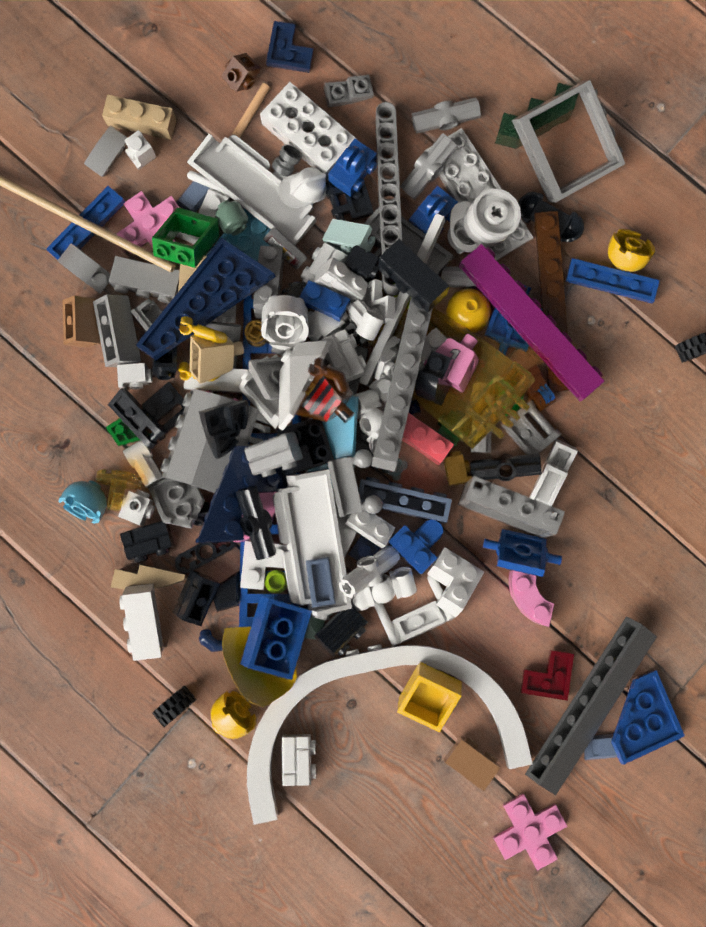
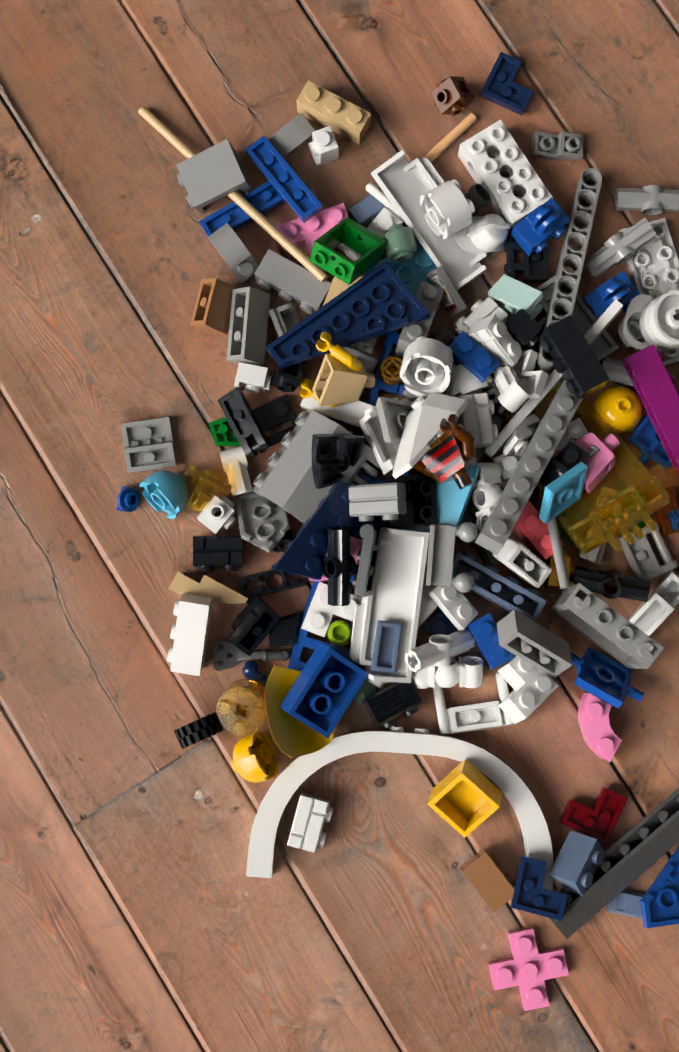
camera: 15 degrees right, 0 degrees up
(45, 204) = (212, 175): none -> light grey panel
(52, 517) = (127, 499): none -> blue plate
(57, 462) = (148, 444): none -> light grey slope
(111, 189) = (284, 179): none -> blue plate
(191, 628) = (238, 655): none -> dark grey piece
(201, 683) = (233, 716): none -> clear yellow brick
(264, 175) = (447, 209): none -> white brick
(280, 509) = (367, 559): none -> plate
(421, 471) = (523, 563): none -> white brick
(438, 398) = (563, 492): none -> medium azure tile
(450, 454) = (558, 554): none -> light grey bar
(451, 541) = (534, 644): none -> light grey brick
(511, 766) = (530, 895): none -> dark blue plate
(545, 725) = (577, 863): none -> sand blue brick

